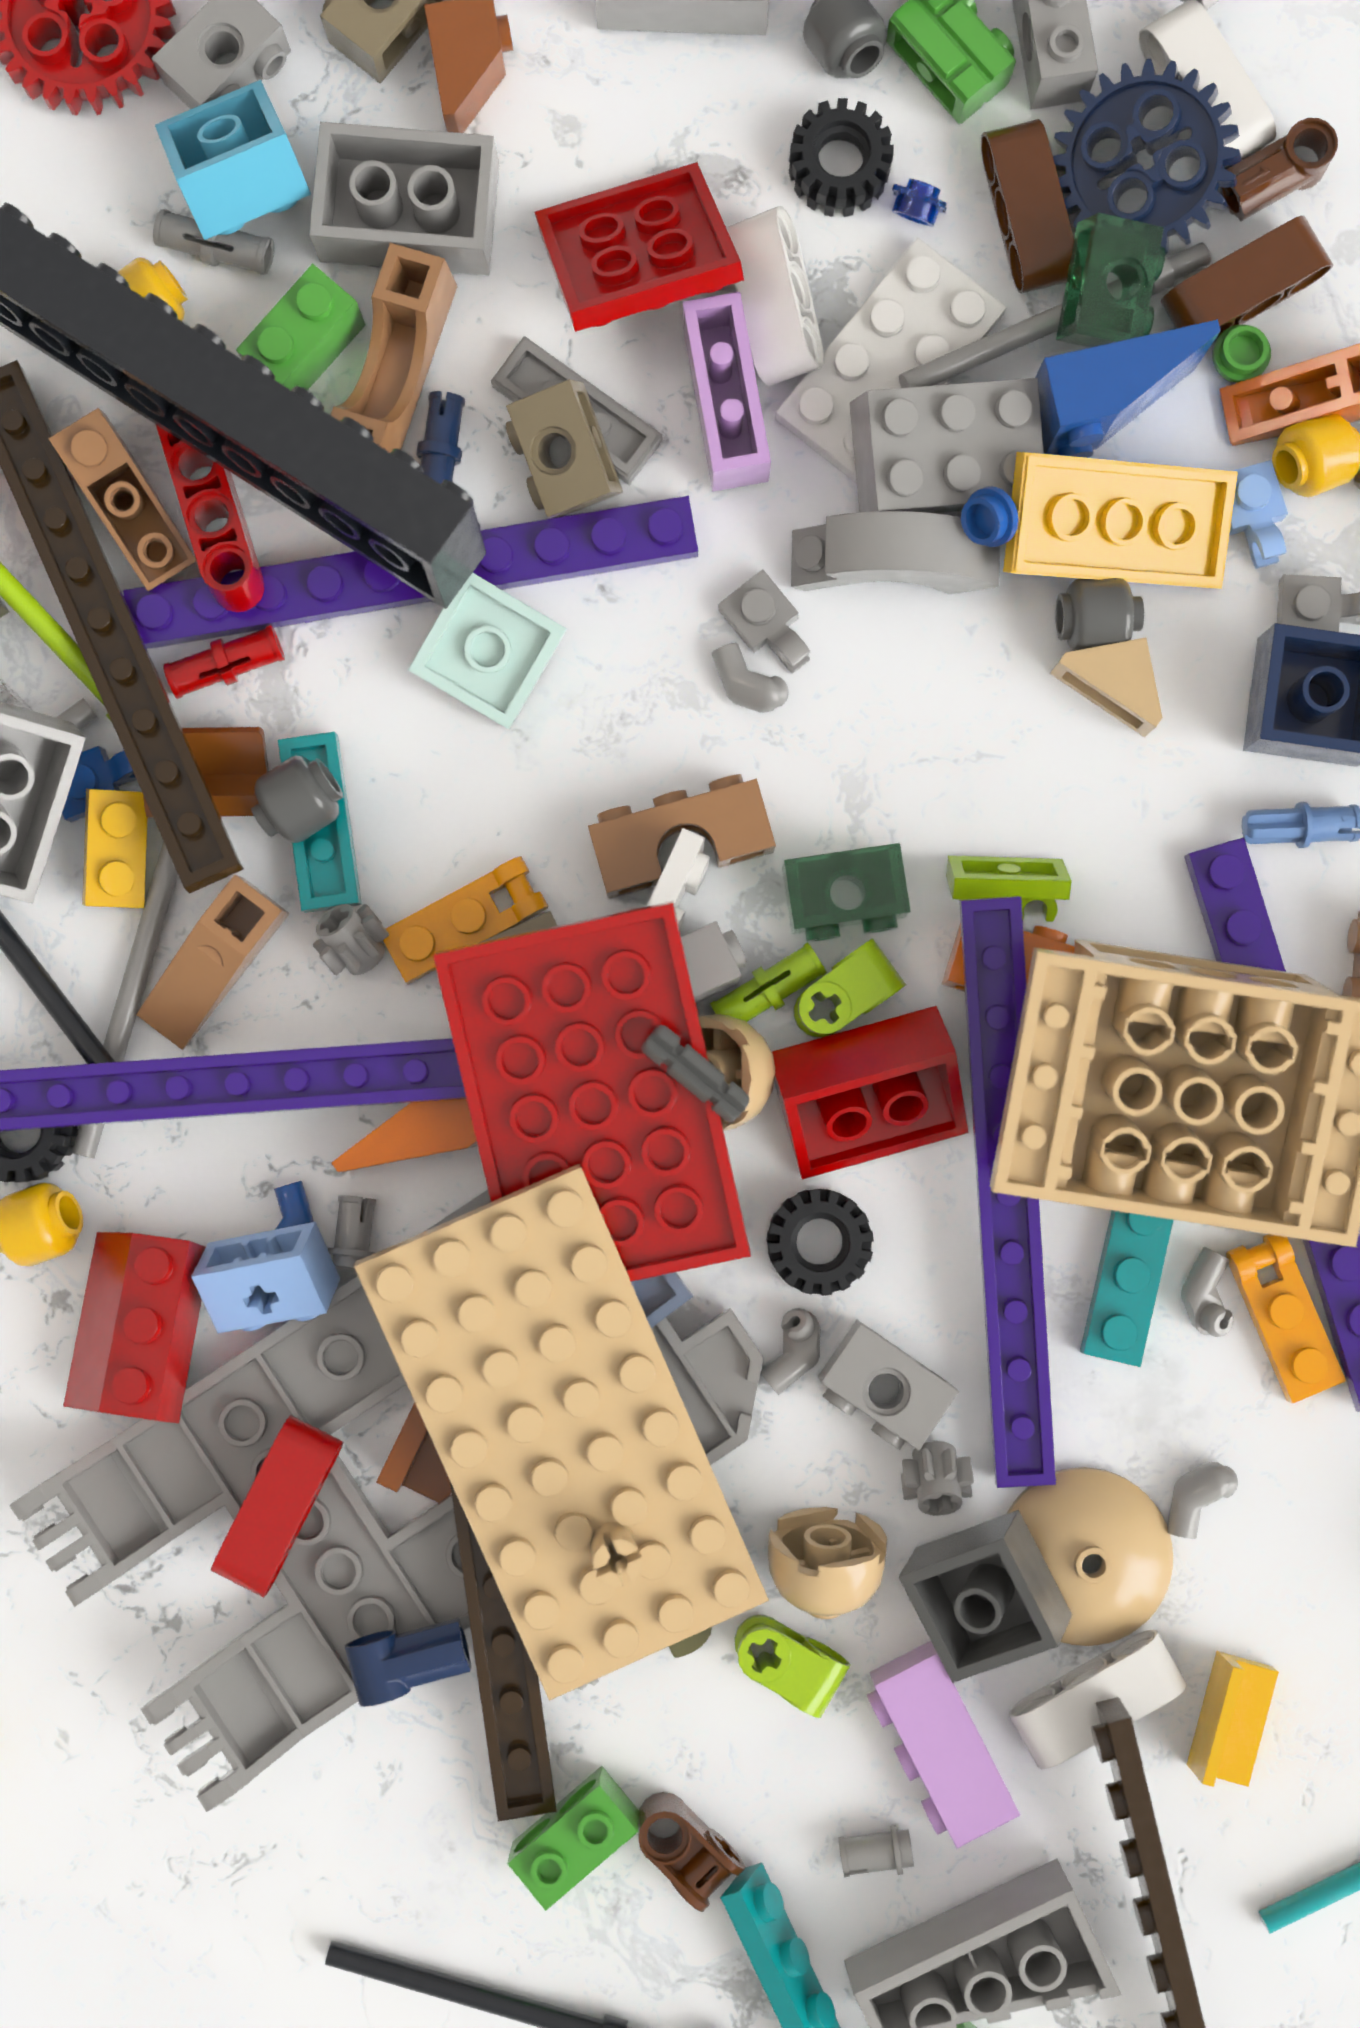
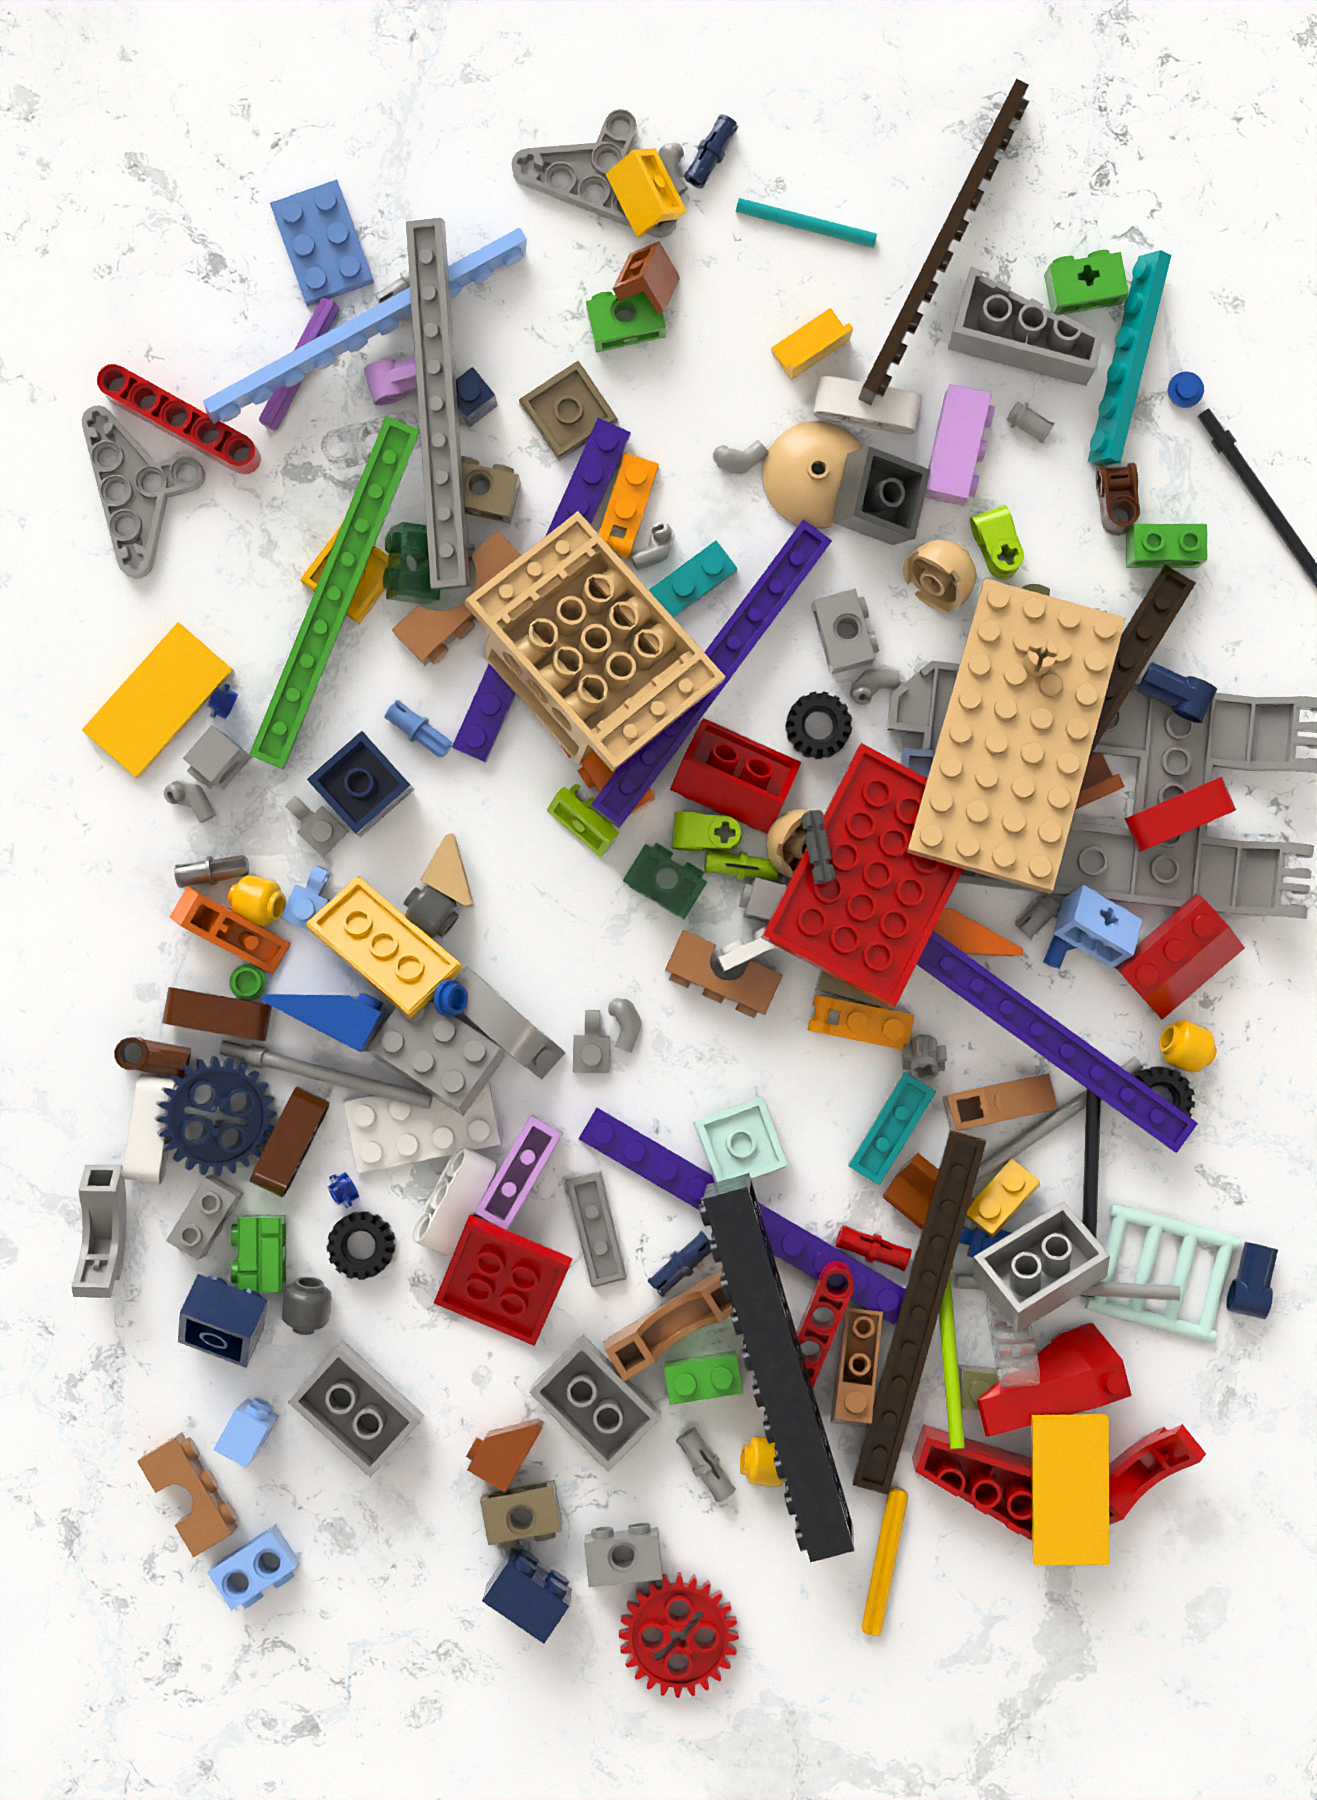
camera: 145 degrees left, 0 degrees up
(232, 160) = (665, 1492): medium azure brick -> none
(296, 799) = (895, 1144): dark grey head -> none
(590, 470) = (606, 1224): dark tan brick -> none
(937, 1478) = (856, 568): light grey gear -> none
(1117, 246) = (284, 1085): clear green brick -> none

